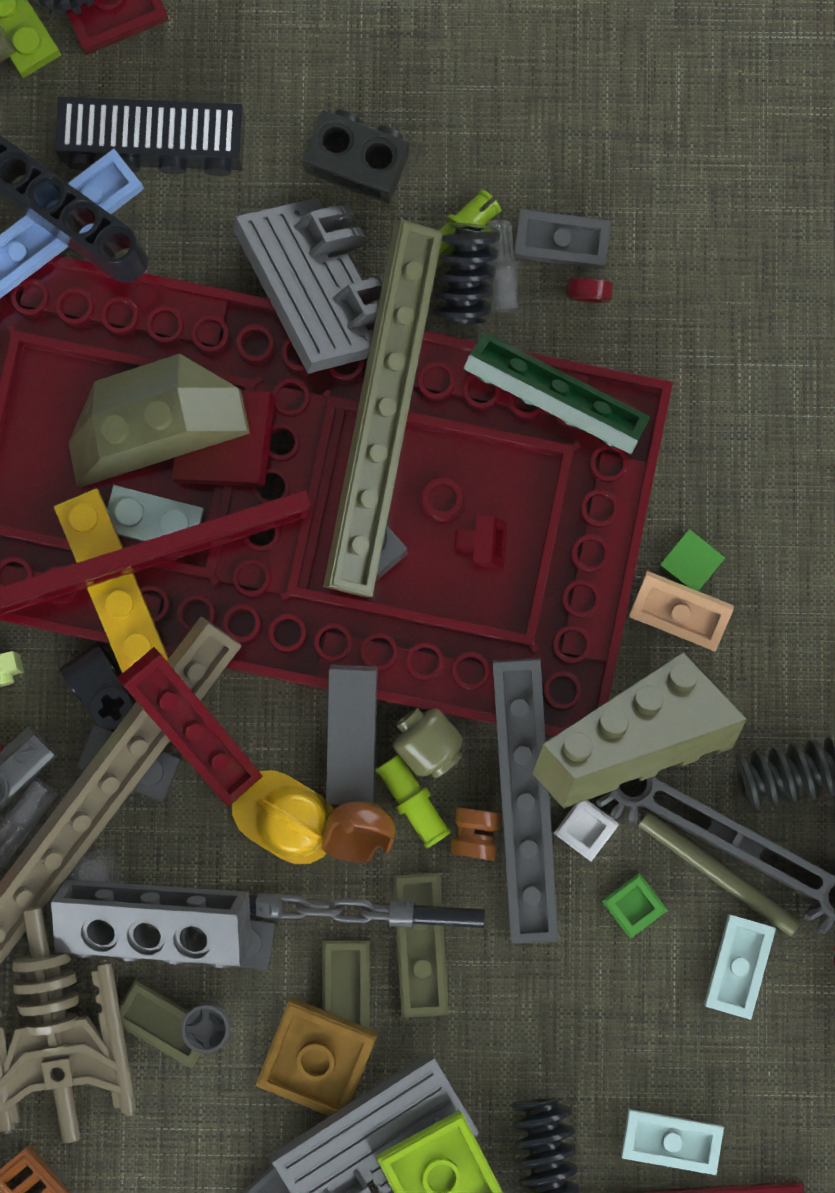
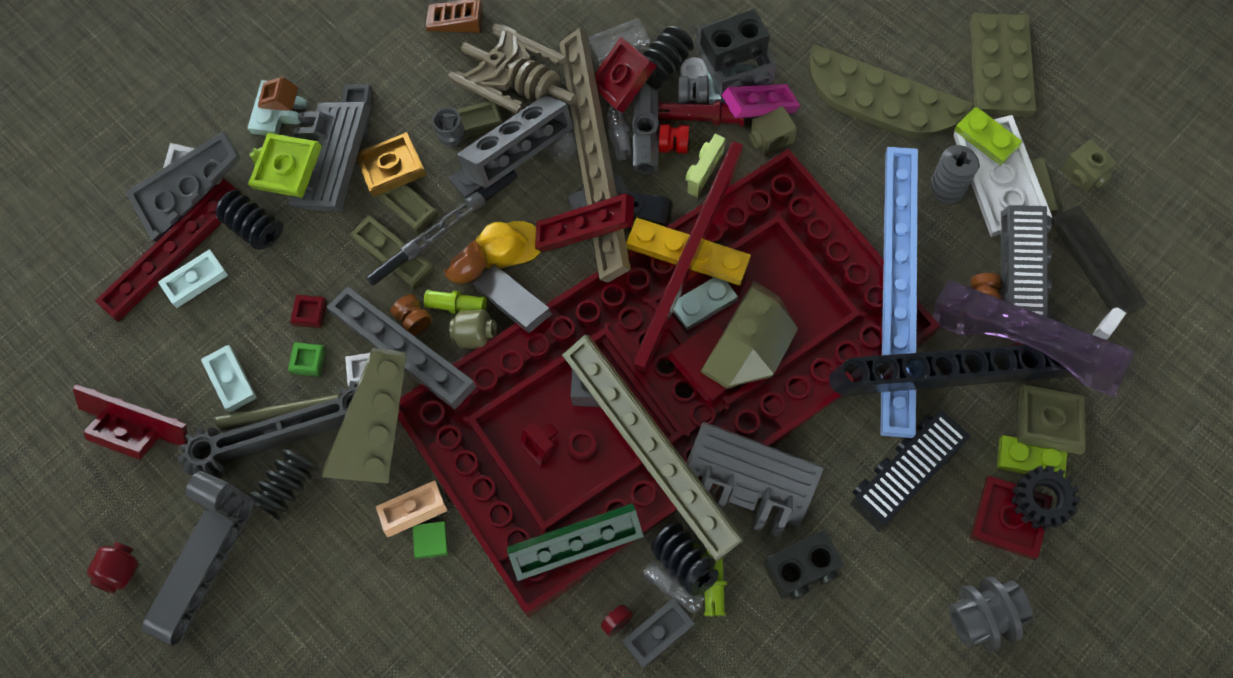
camera: 135 degrees right, 15 degrees down
(579, 964) = (308, 311): none -> dark red tile

